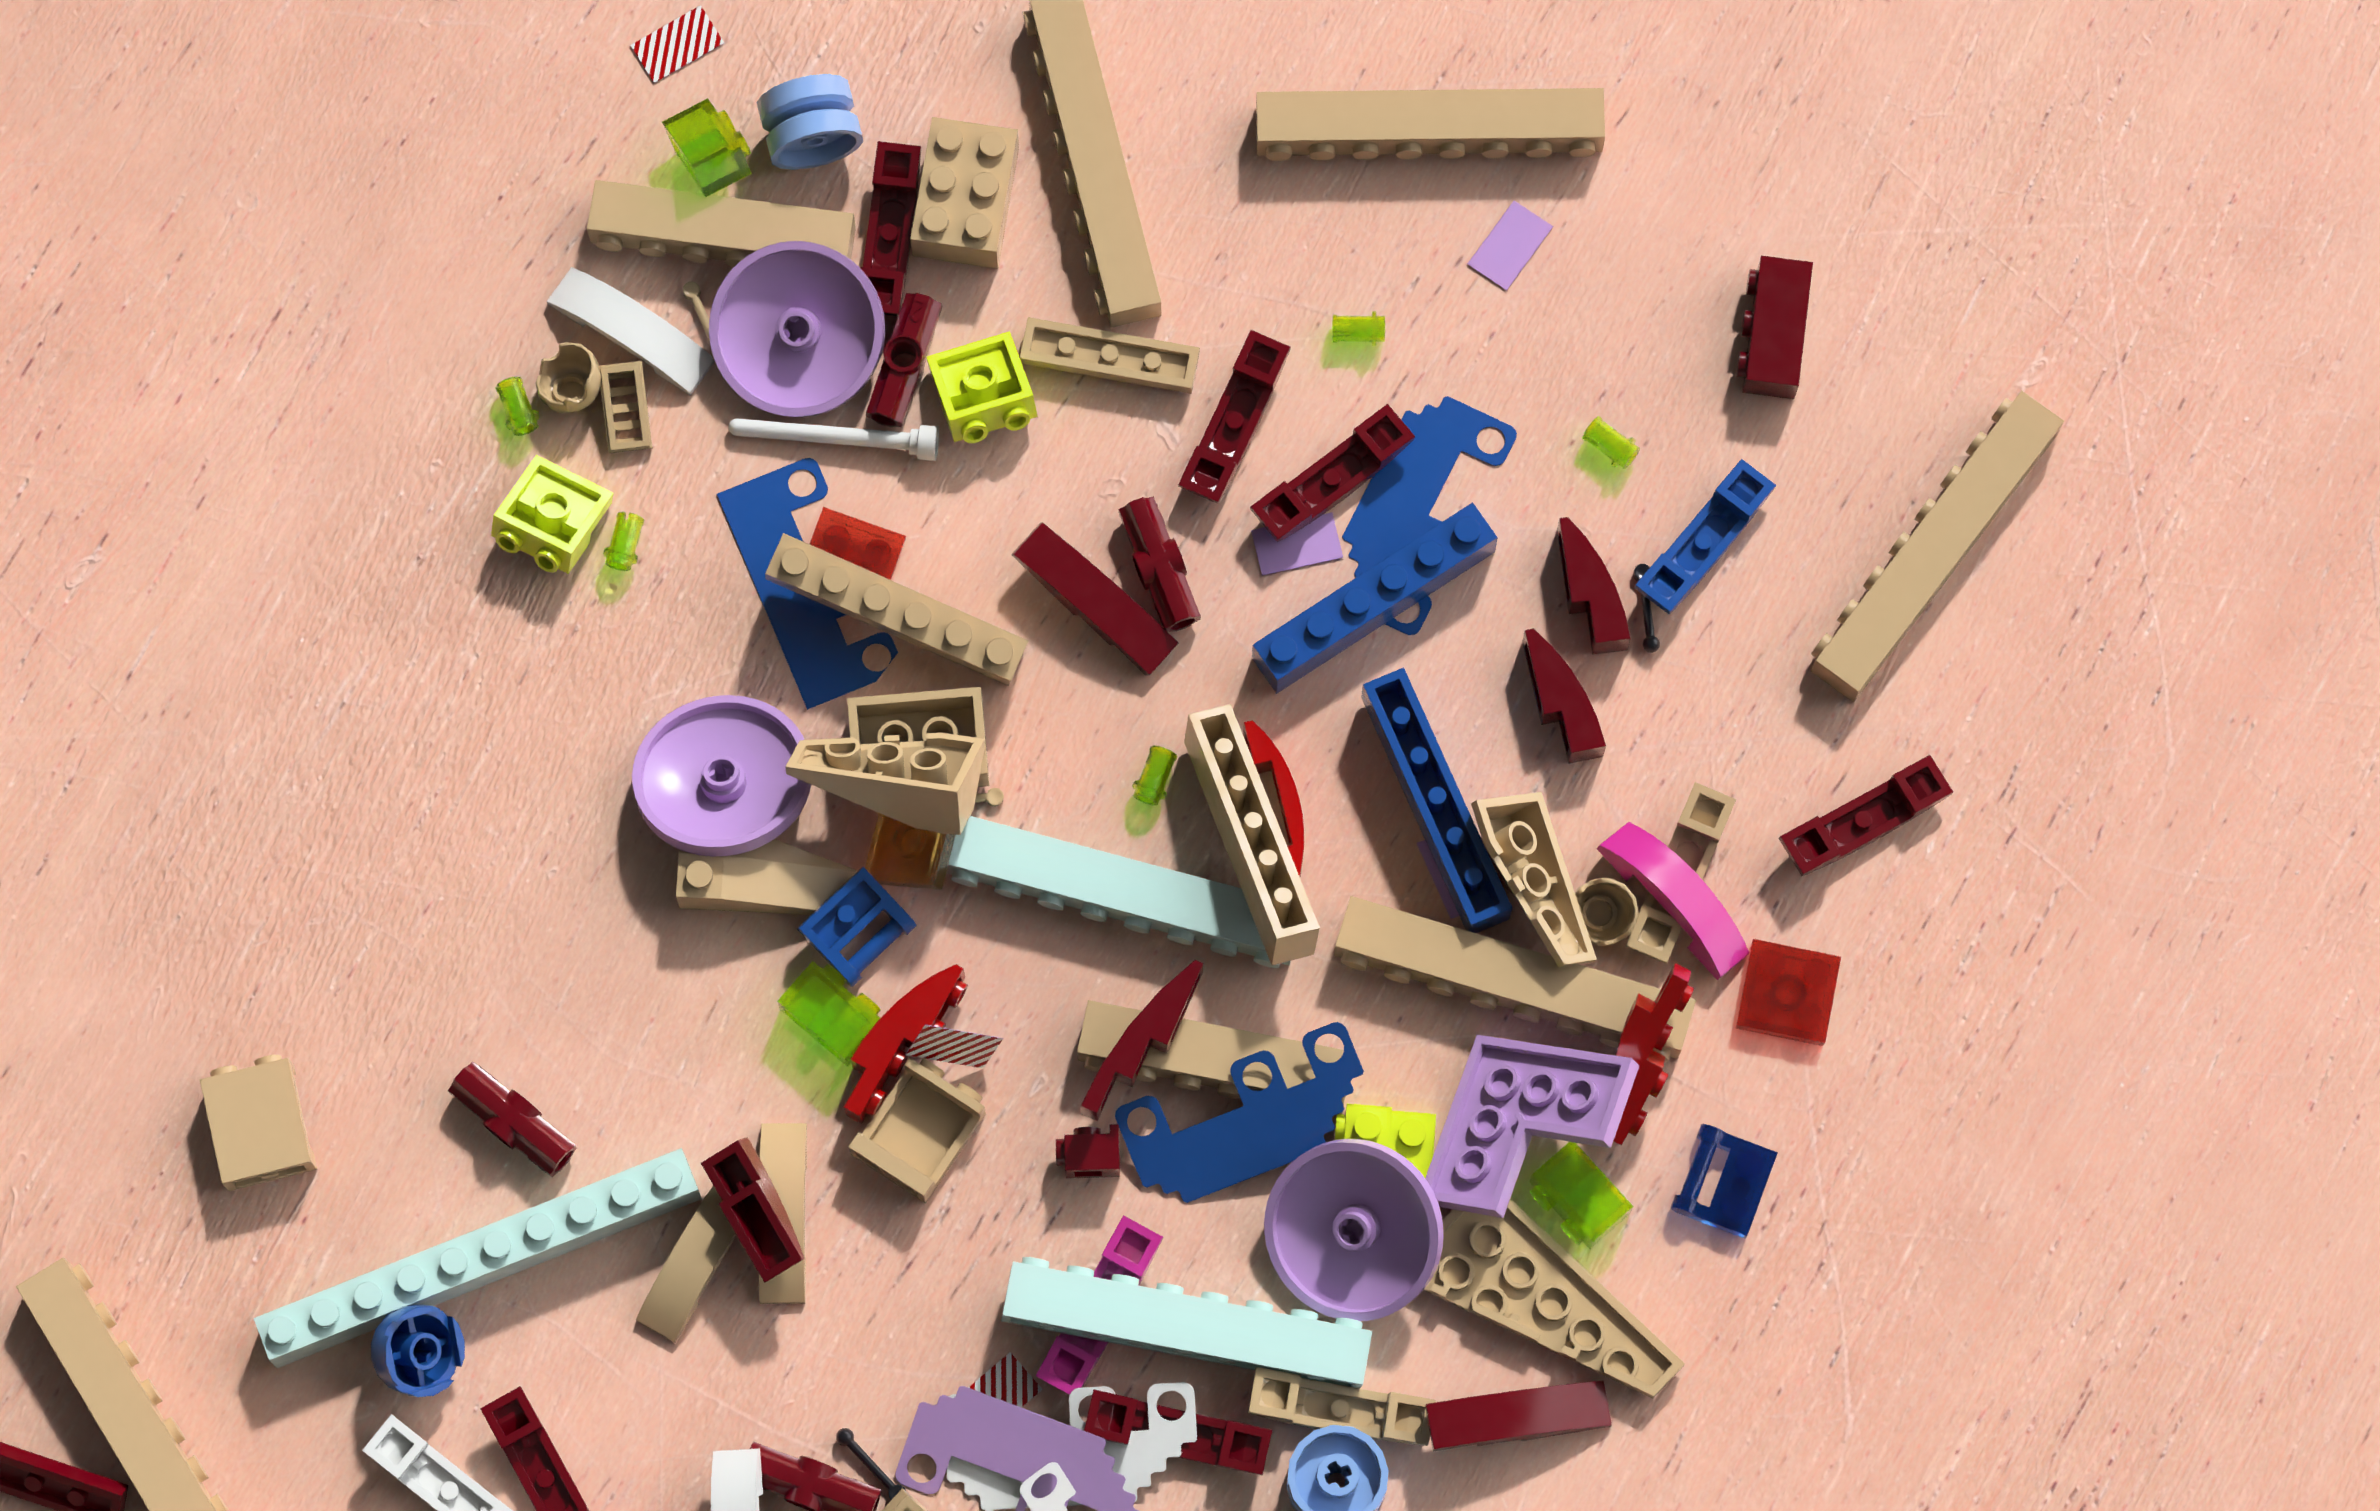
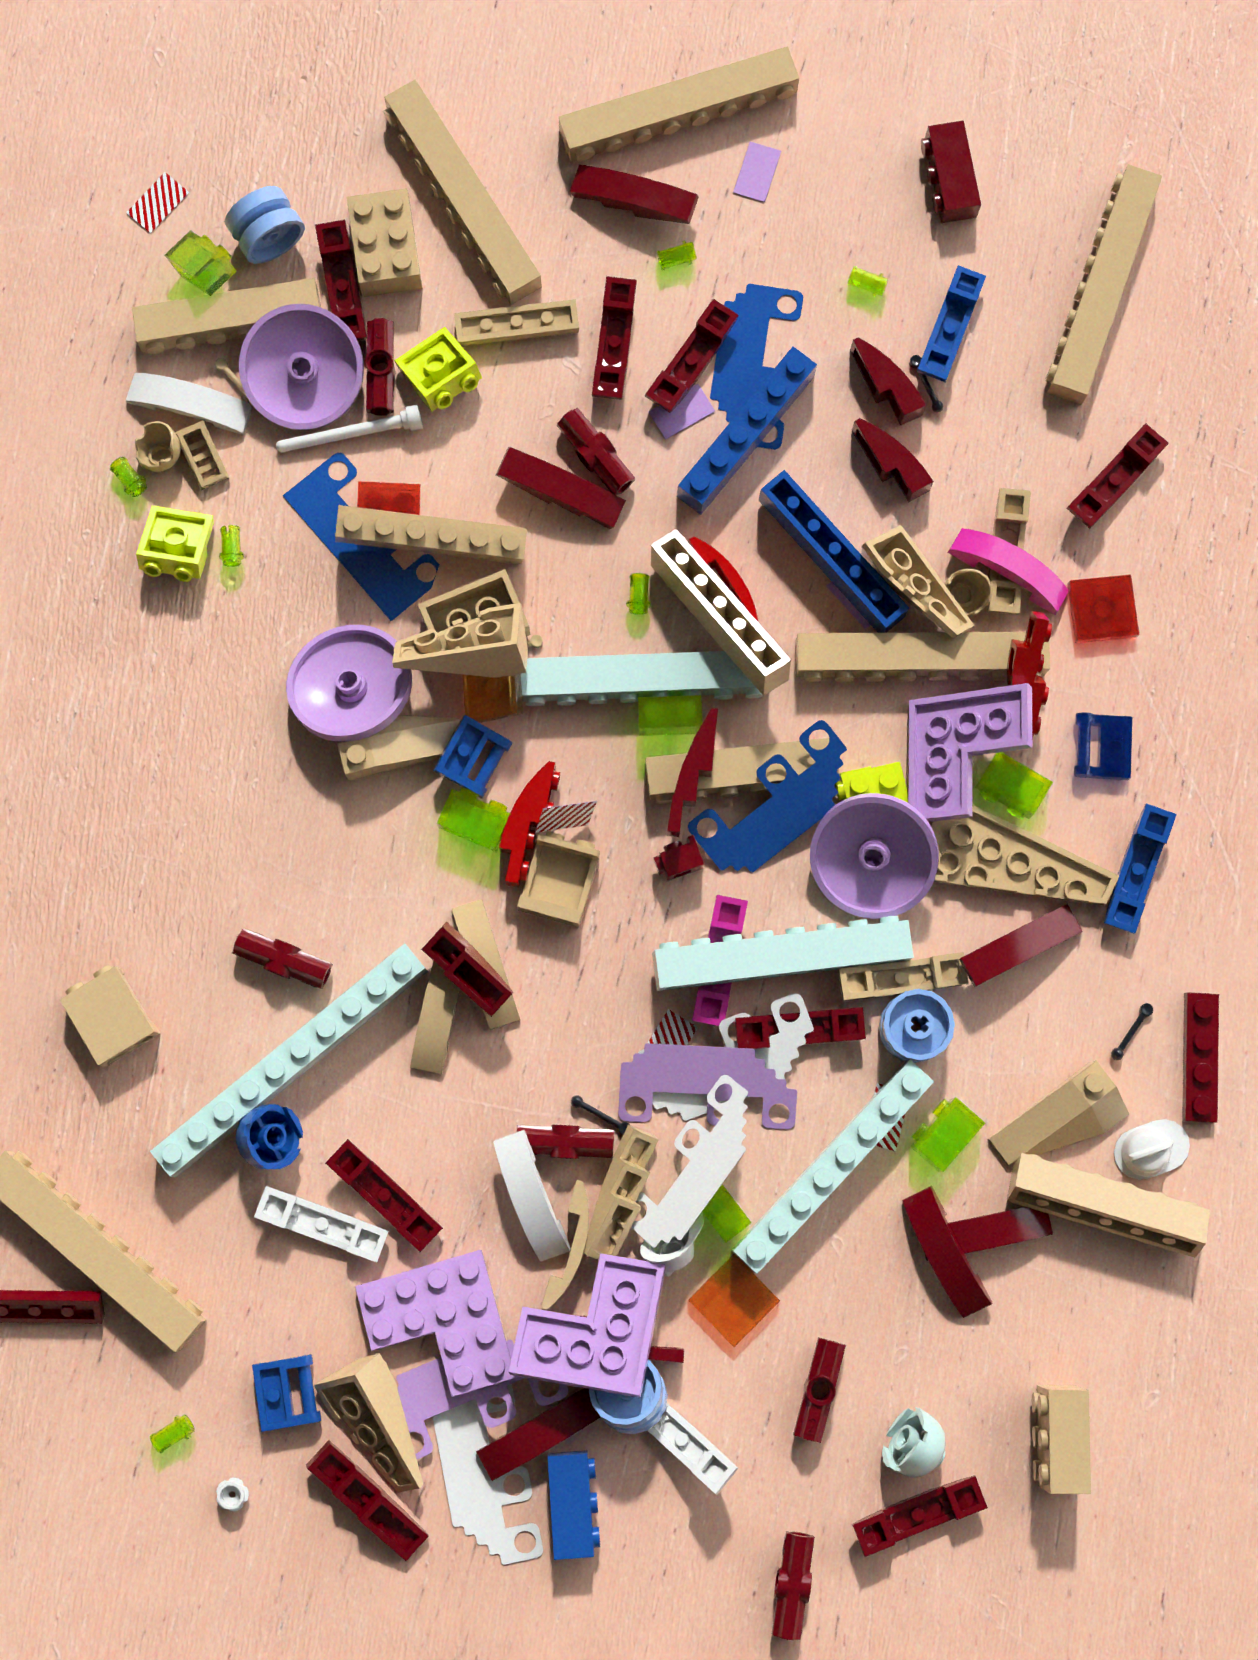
camera: 20 degrees left, 5 degrees up
(1139, 952) = (669, 715): none -> clear neon green brick
(1328, 227) = (634, 193): none -> dark red slope
(1716, 1362) = (1138, 868): none -> blue slope

